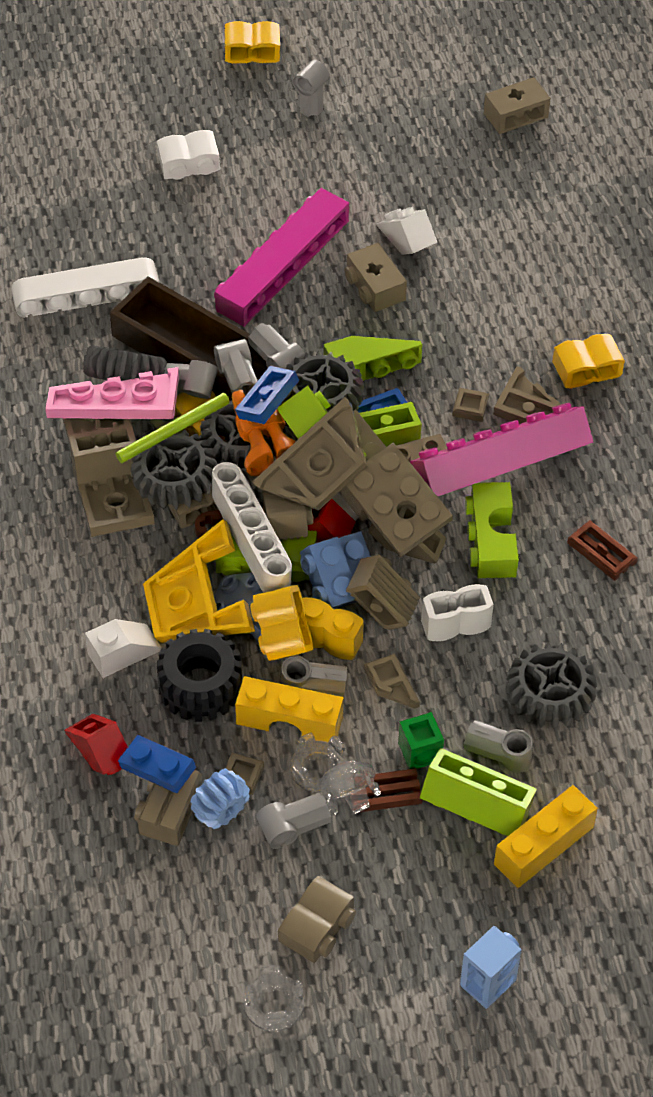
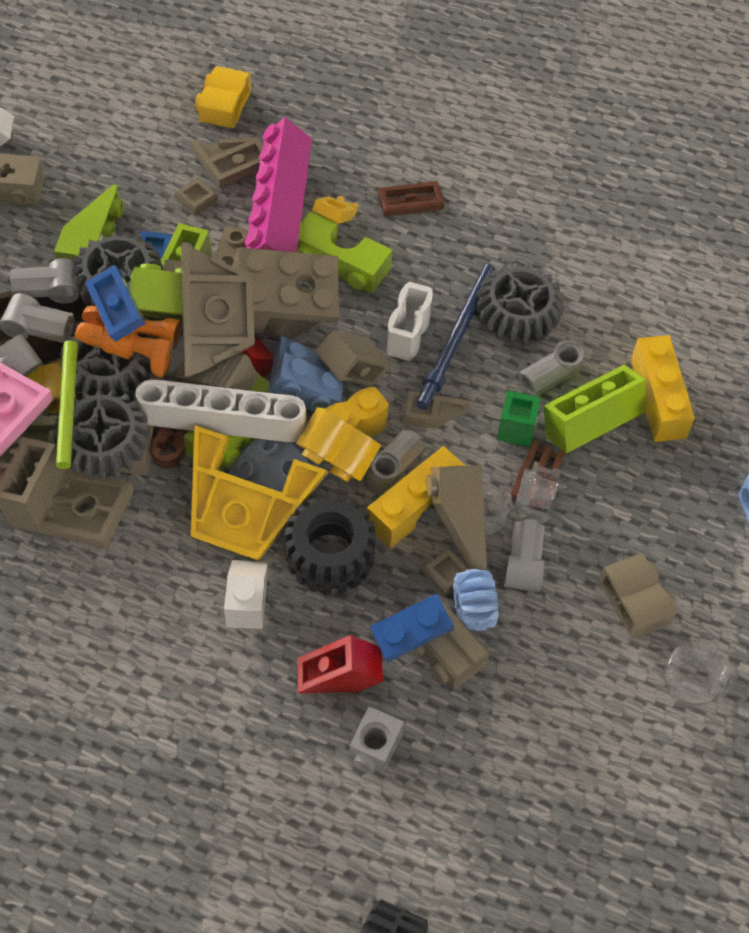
camera: 60 degrees left, 5 degrees up
(58, 786) = (379, 726): none -> light grey brick
(287, 737) = (460, 504): none -> dark tan slope
(417, 663) = (435, 377): none -> dark blue bar
(530, 501) = (335, 209): none -> yellow plate

